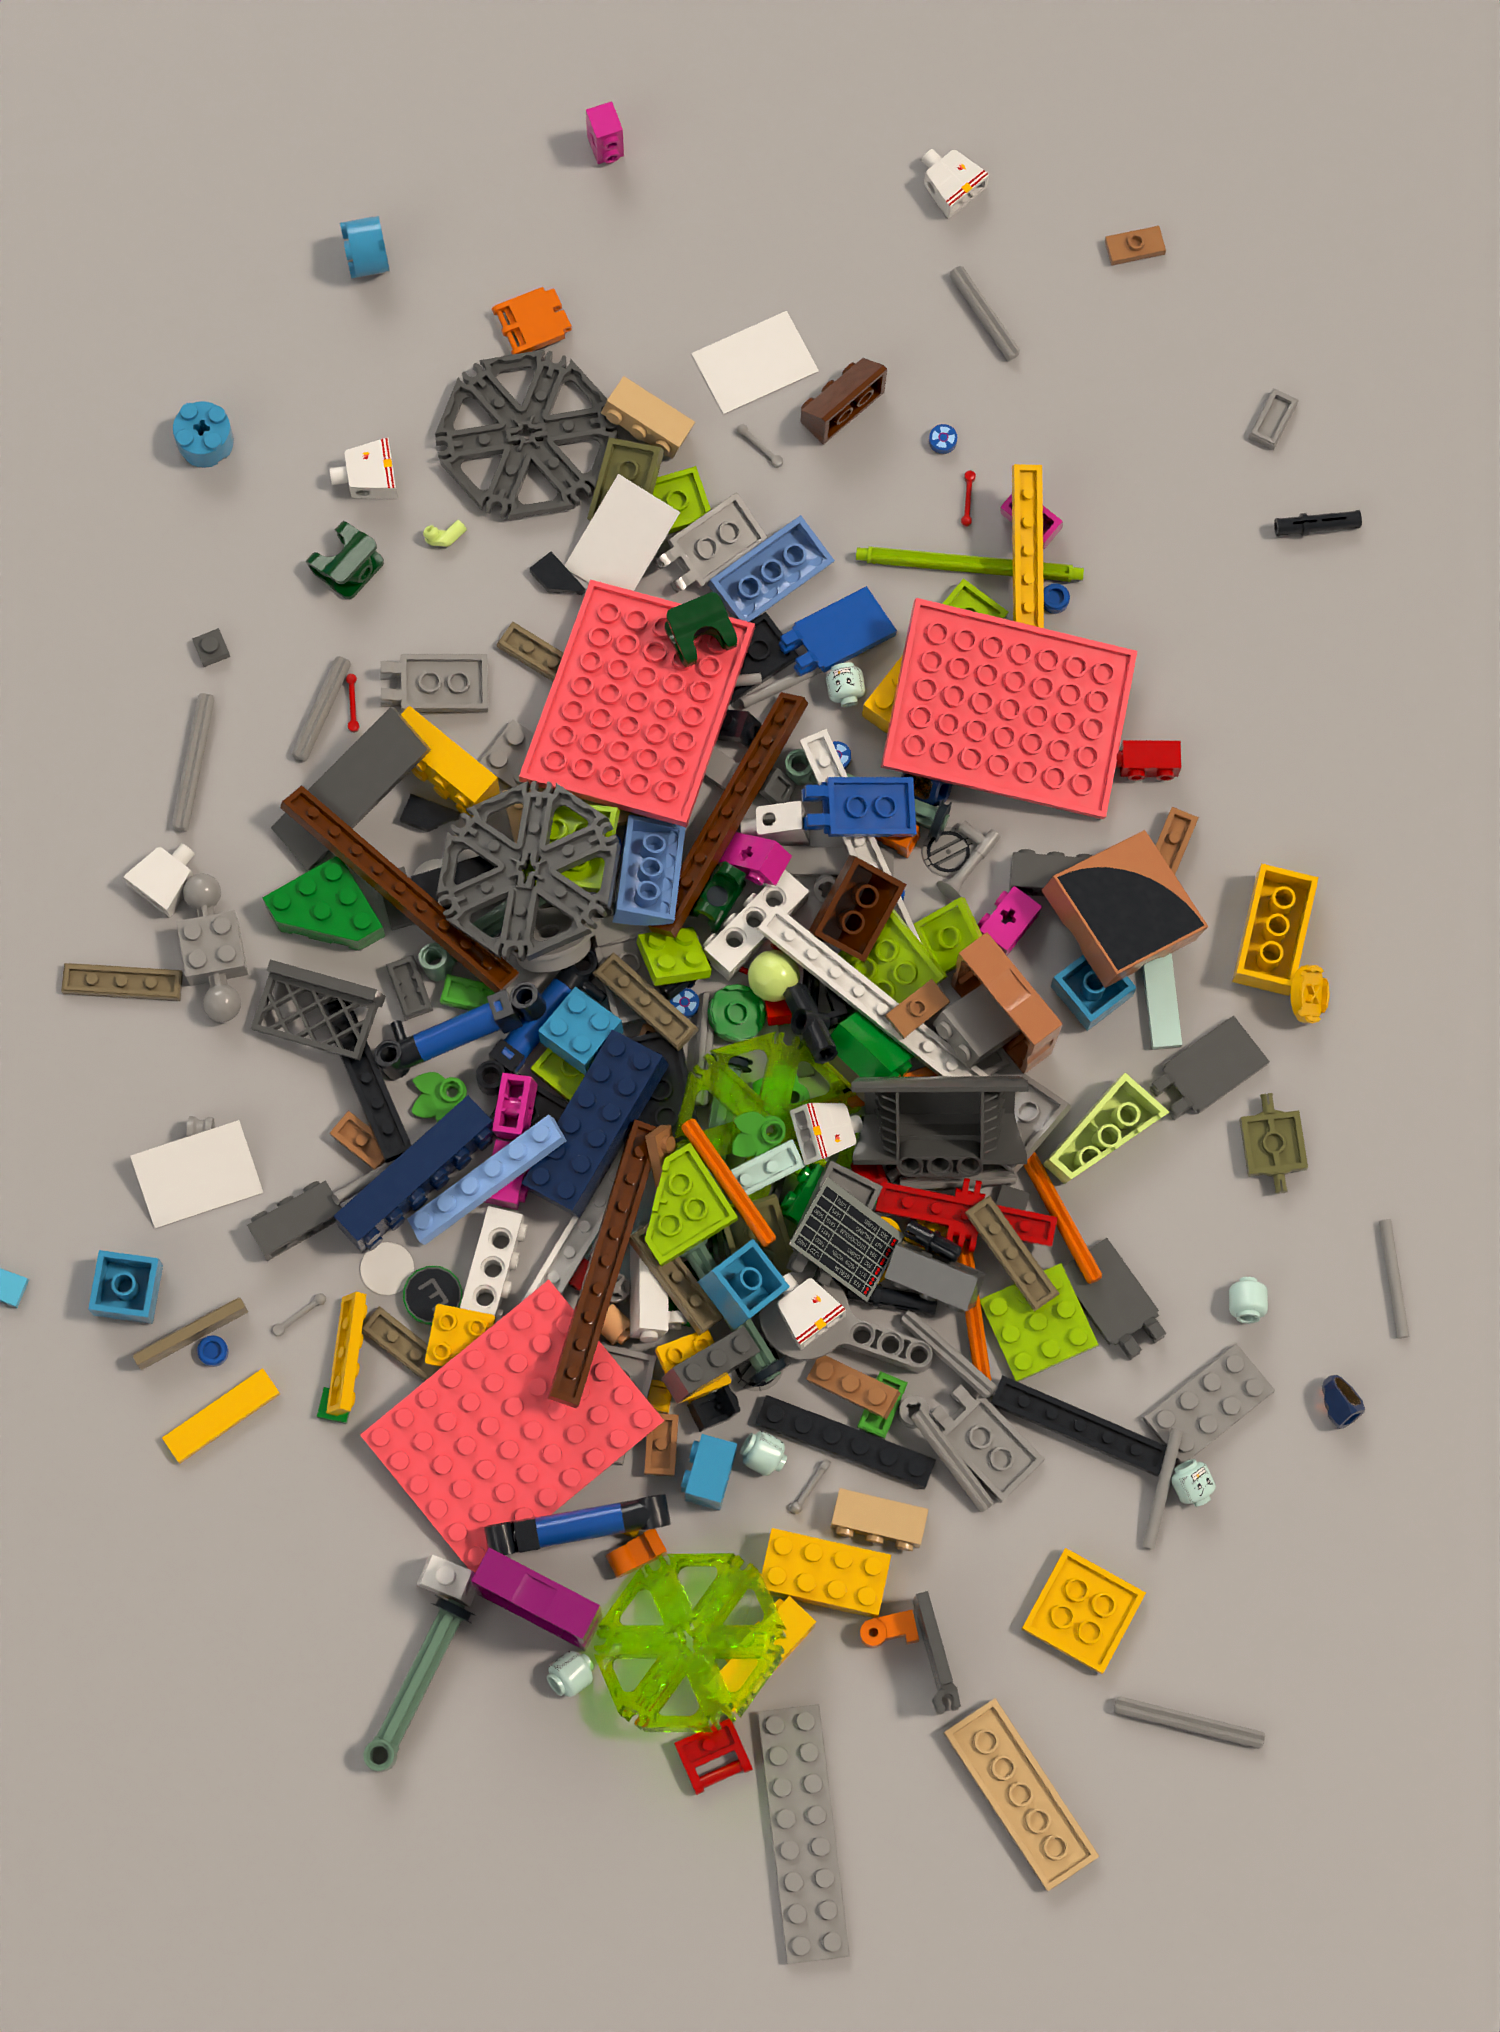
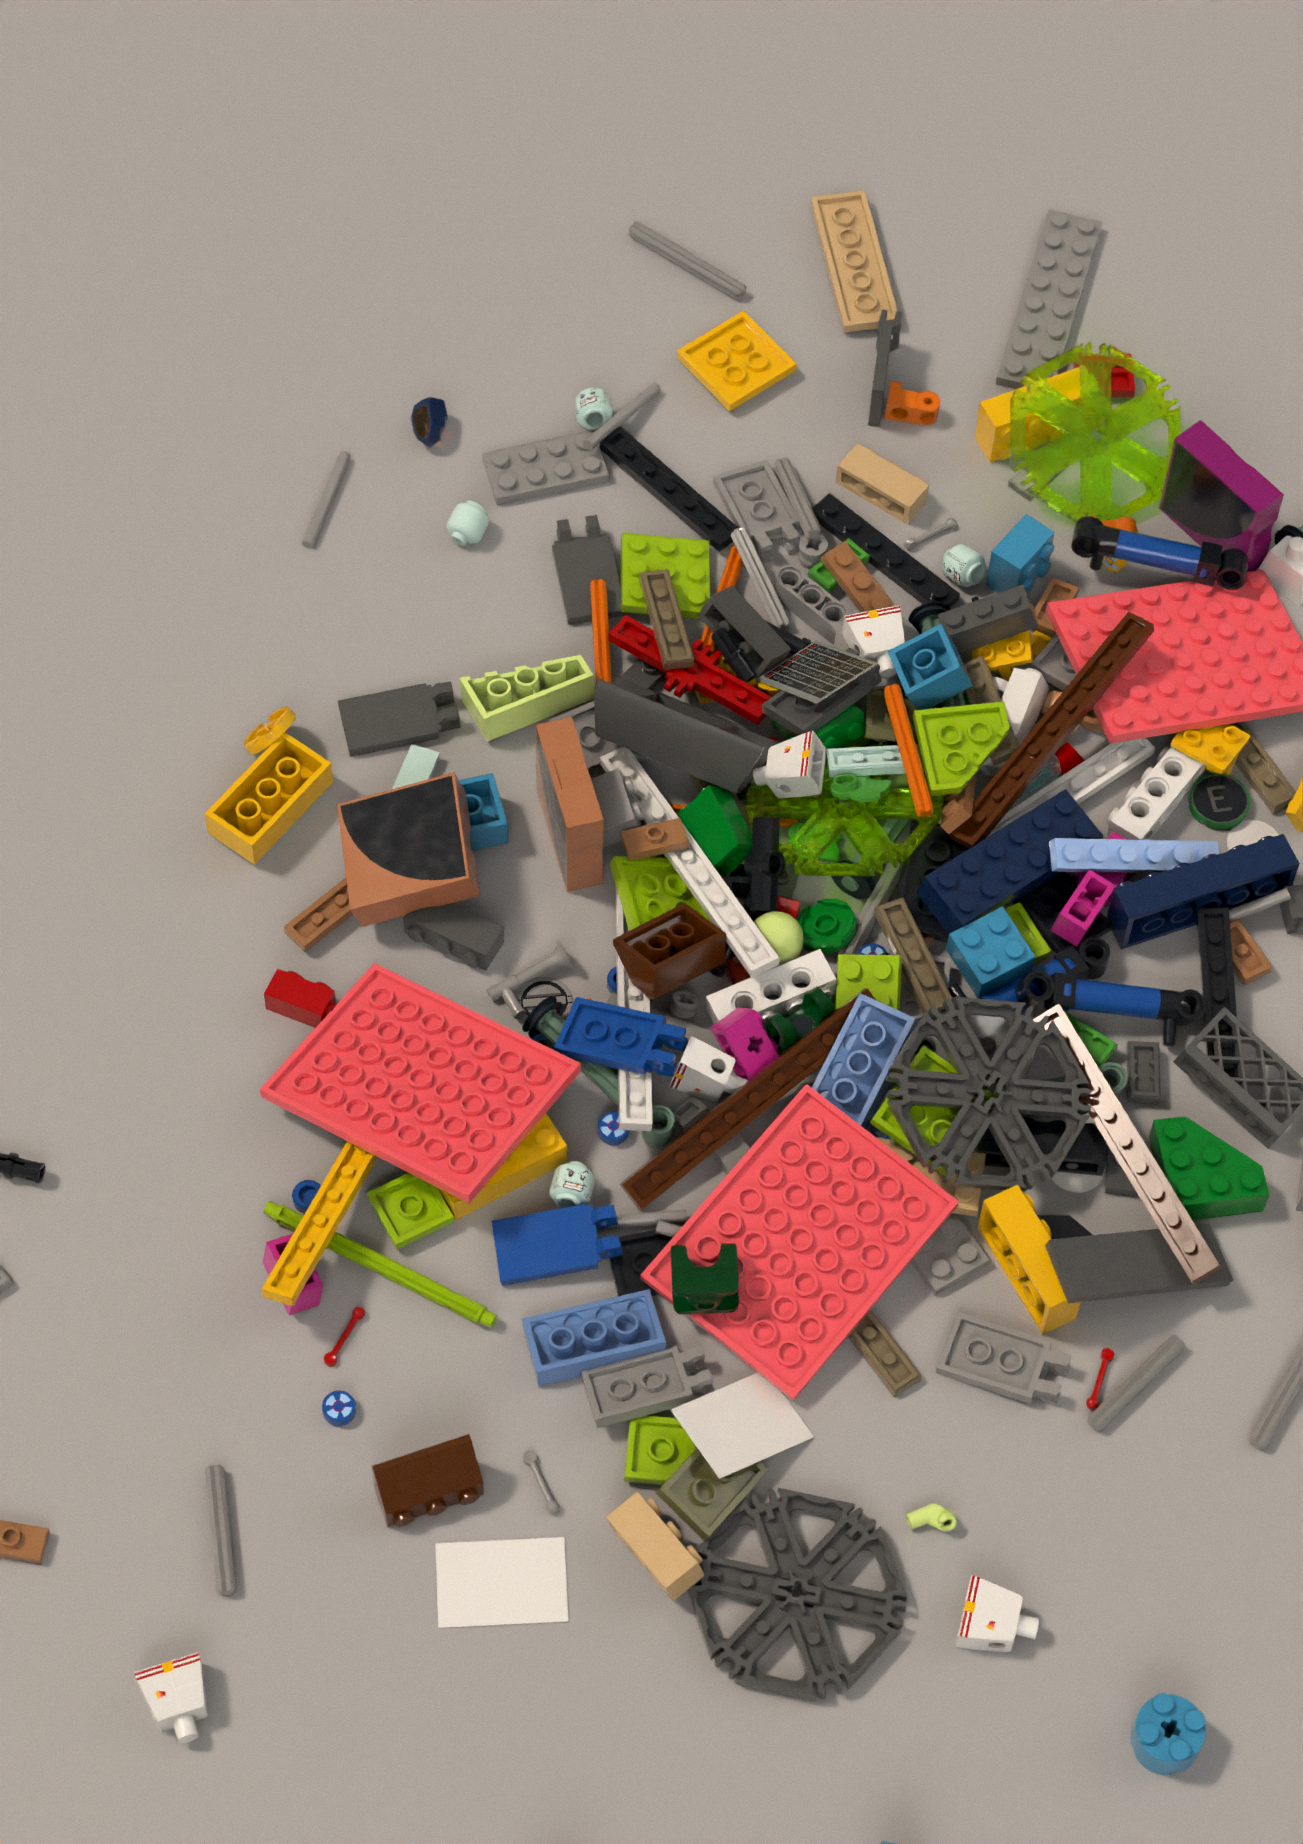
camera: 155 degrees left, 15 degrees down
(211, 647) = (1235, 1496): dark grey plate -> none
(352, 566) = (1050, 1513): dark green piece -> none
(434, 1098) = (1153, 964): bright green plate -> none
(533, 320) = (734, 1724): orange plate -> none
(555, 576) = (827, 1425): black tile -> none
(739, 727) = (698, 1185): black bracket -> none
(825, 1573) = (950, 459): yellow brick -> none
(948, 932) = (585, 909): lime plate -> none
(1016, 906) = (521, 905): dark pink brick -> none
(1273, 1143) = (373, 634): olive plate -> none

